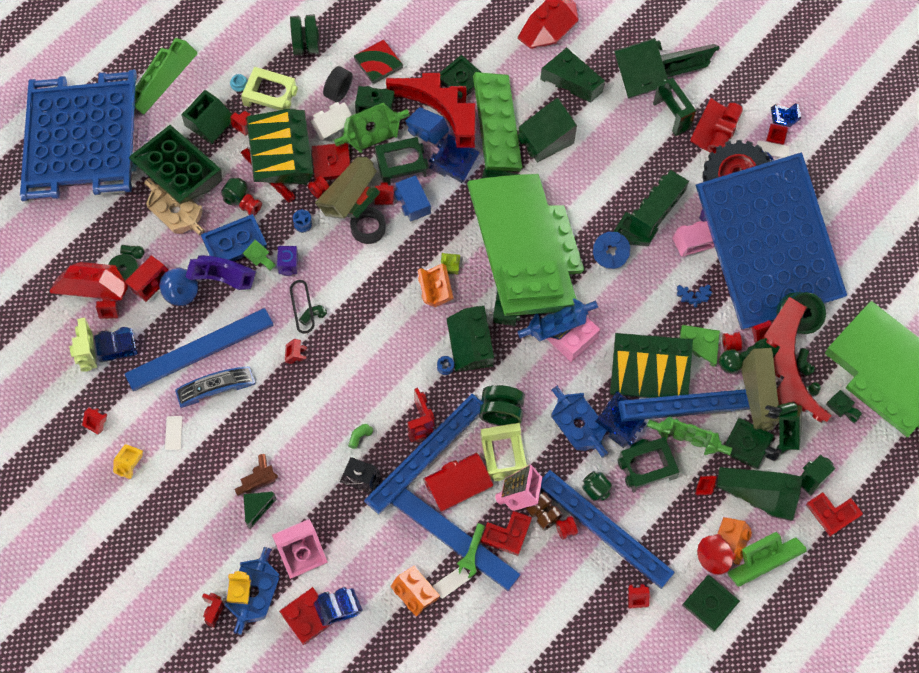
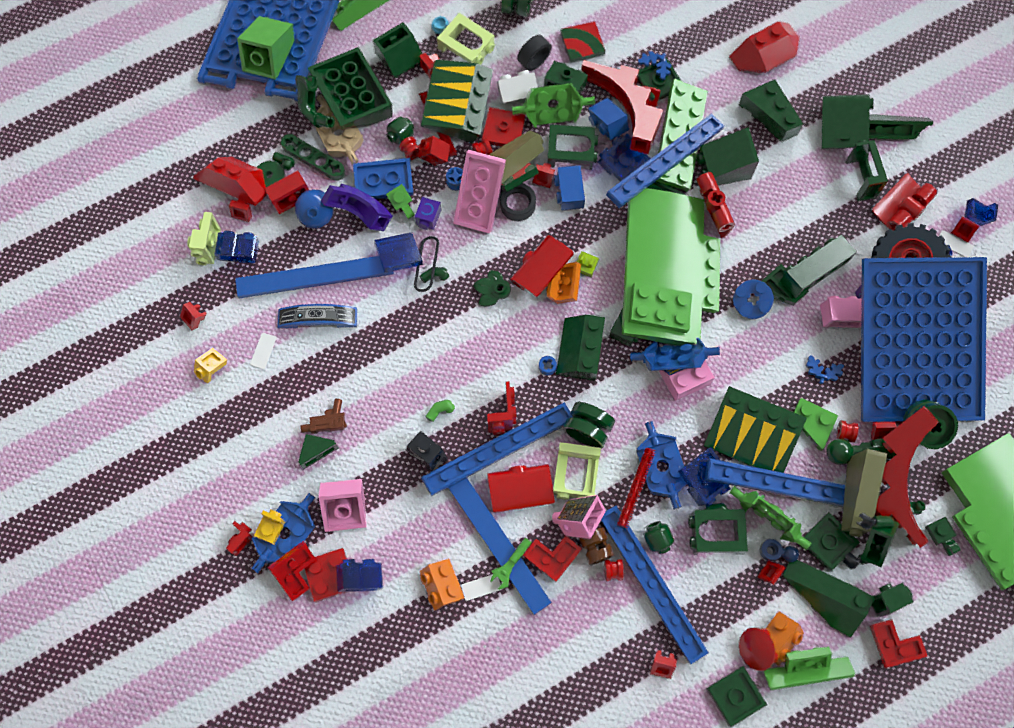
camera: 20 degrees right, 5 degrees up
(81, 149) = (265, 46): none -> bright green slope
(135, 182) = (306, 102): none -> dark green piece
(160, 236) = (314, 155): none -> dark green beam
(269, 620) = (287, 570): none -> red plate
(272, 303) = (398, 252): none -> clear blue tile
(274, 200) = (434, 150): none -> red brick
(292, 351) = (402, 306): red tile -> none
(331, 225) = (479, 191): none -> bright pink plate
(368, 312) = (489, 288): none -> dark green plate
(410, 276) = (541, 265): none -> red panel
(449, 59) = (662, 64): none -> blue animal
(491, 149) = (664, 161): none -> tile
(550, 175) = (716, 204): none -> red panel
(563, 448) = (636, 487): none -> red axle
(717, 464) = (789, 553): none -> dark blue plate
(804, 367) = (914, 479): dark green arm -> none

